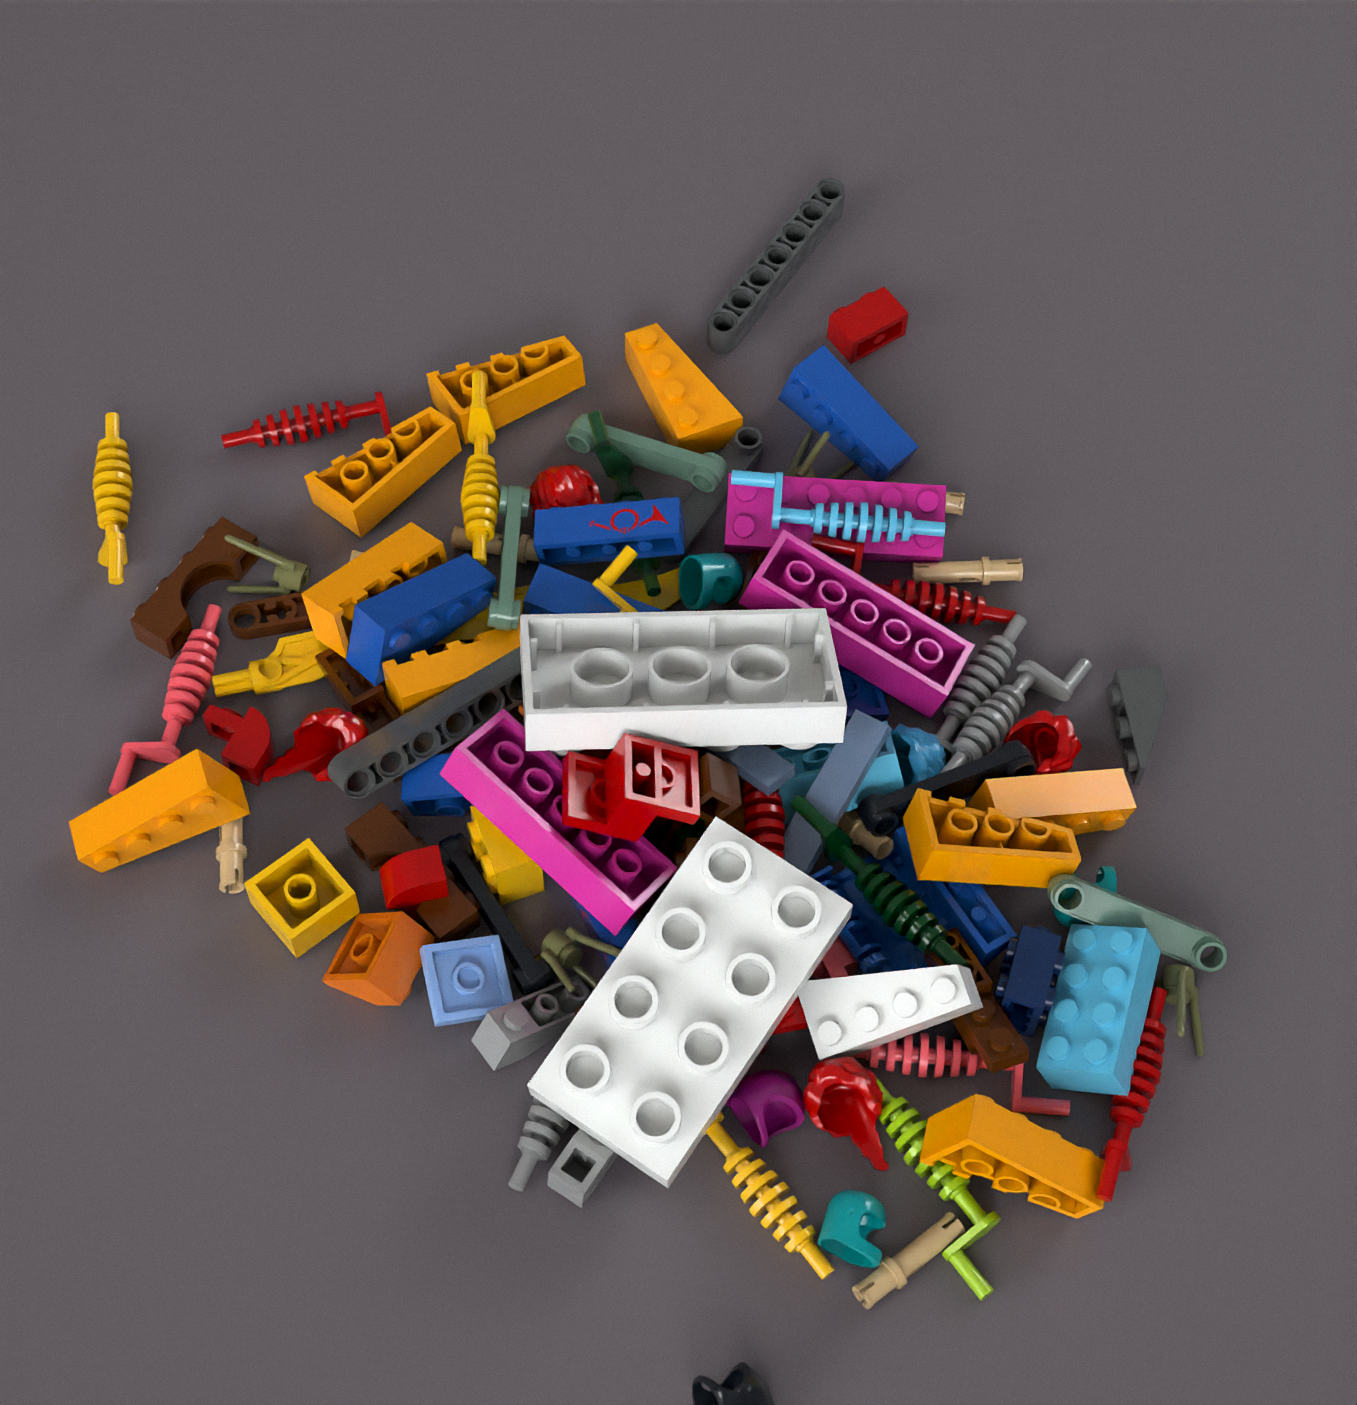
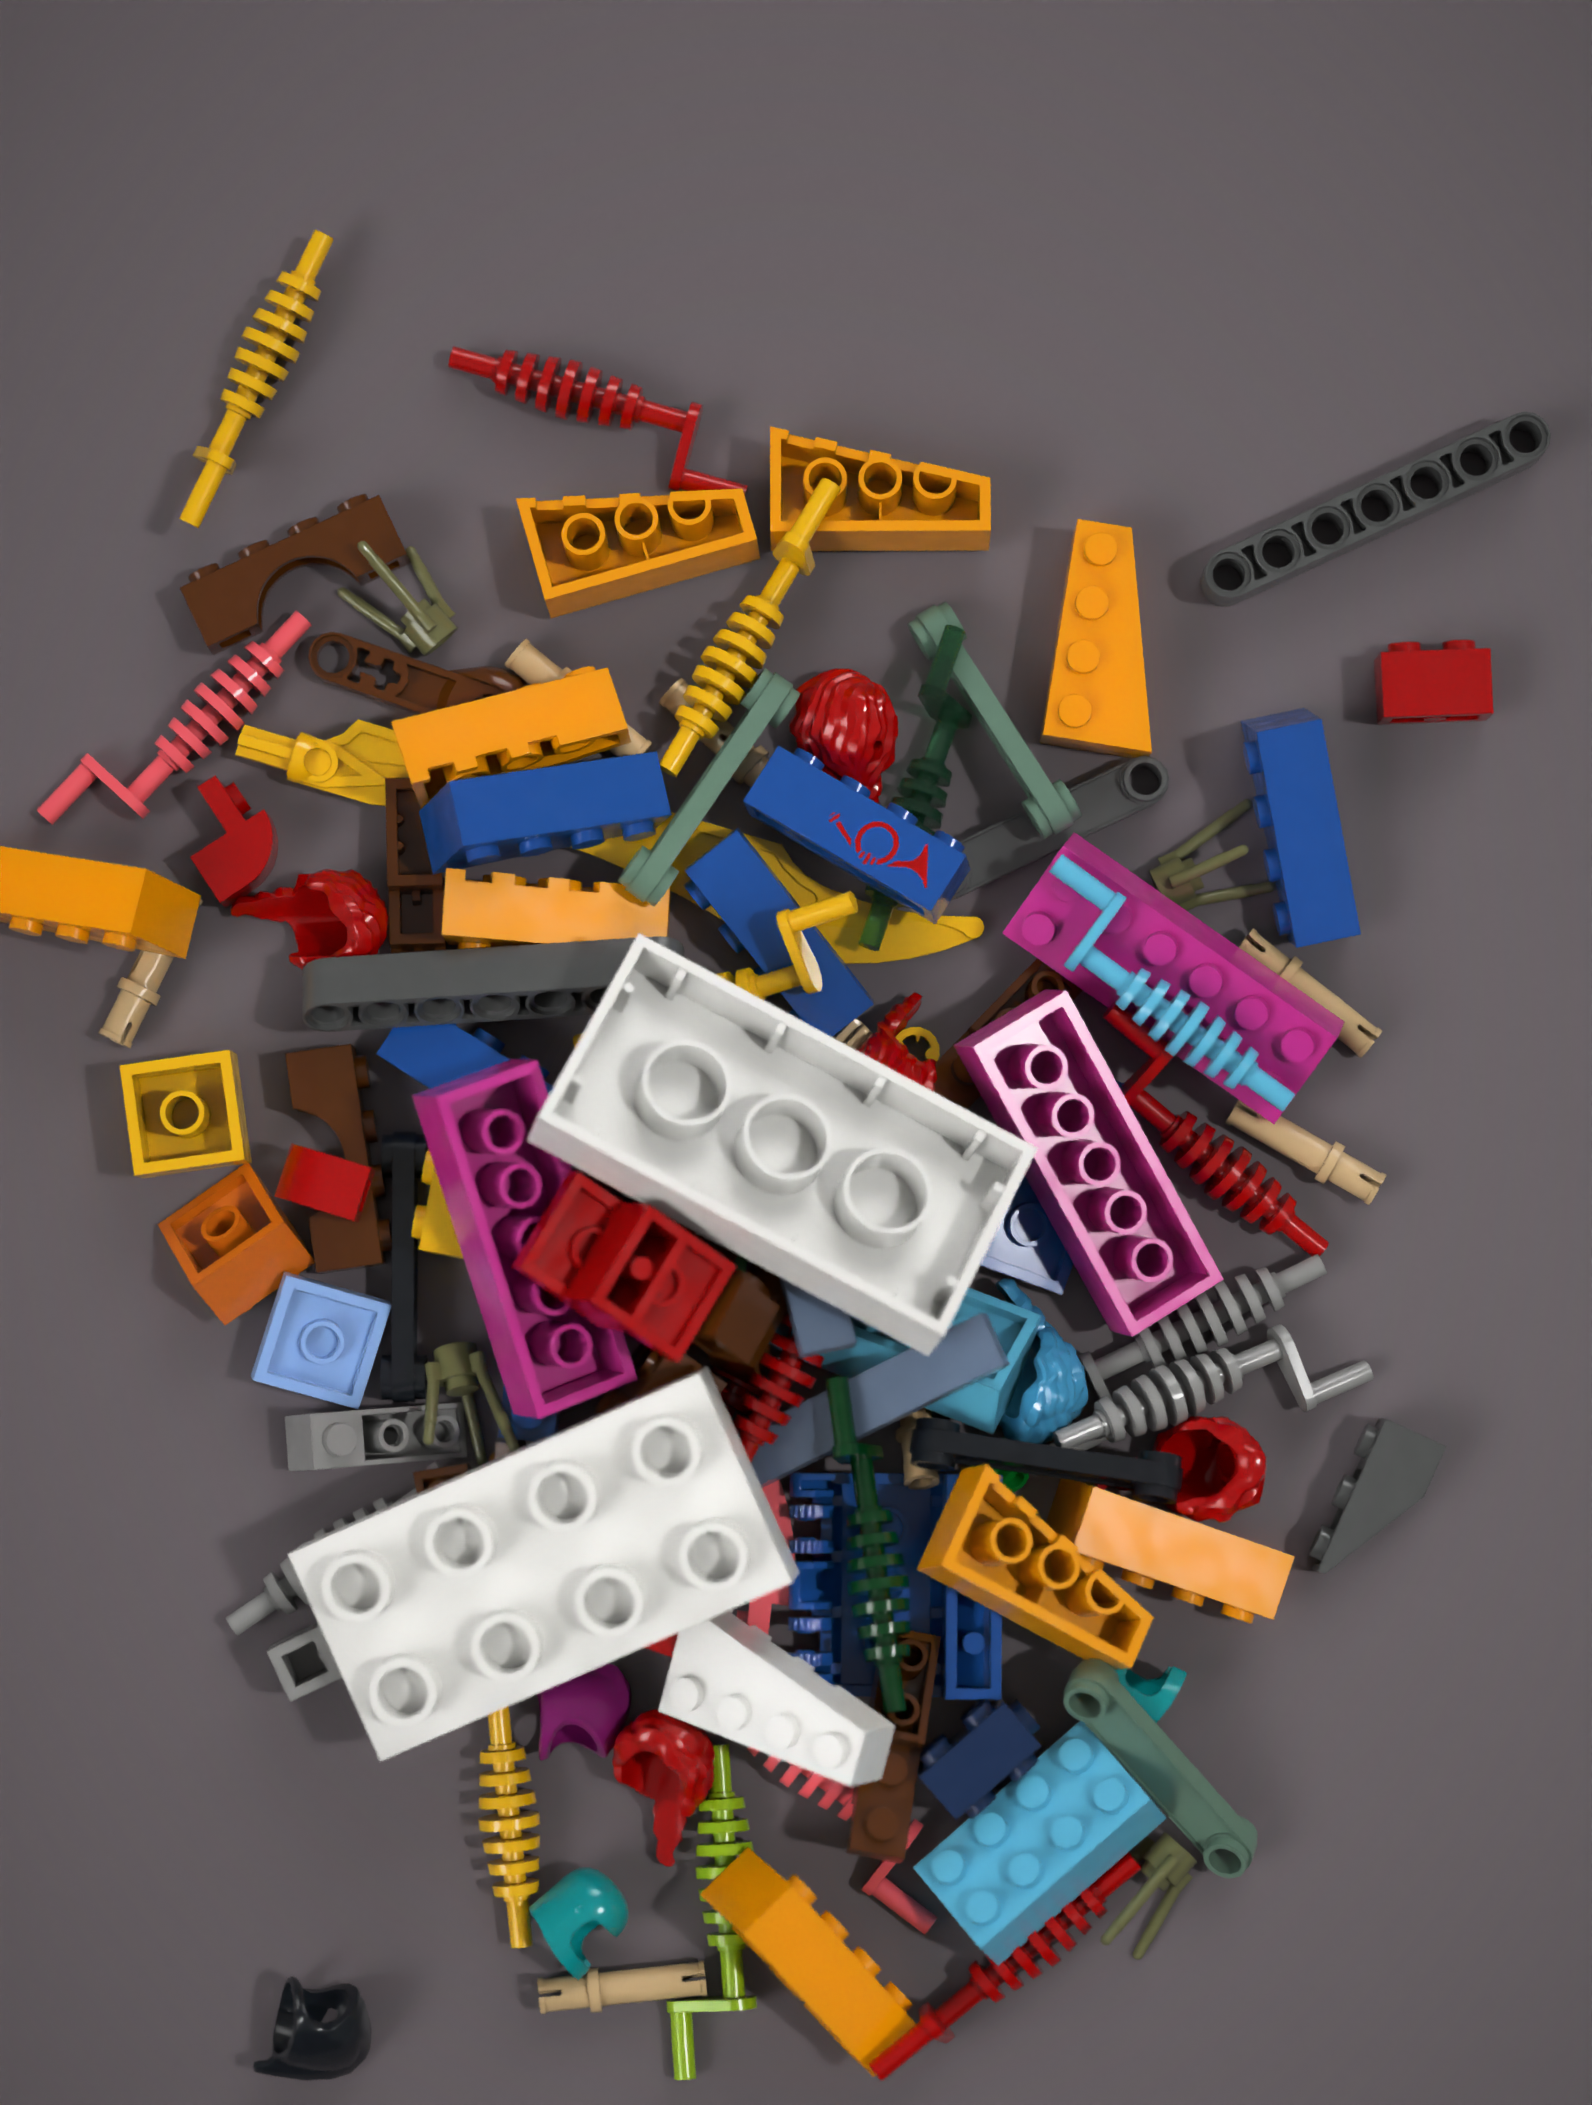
camera: 30 degrees right, 25 degrees up
(709, 578) = (958, 960): teal helmet -> none

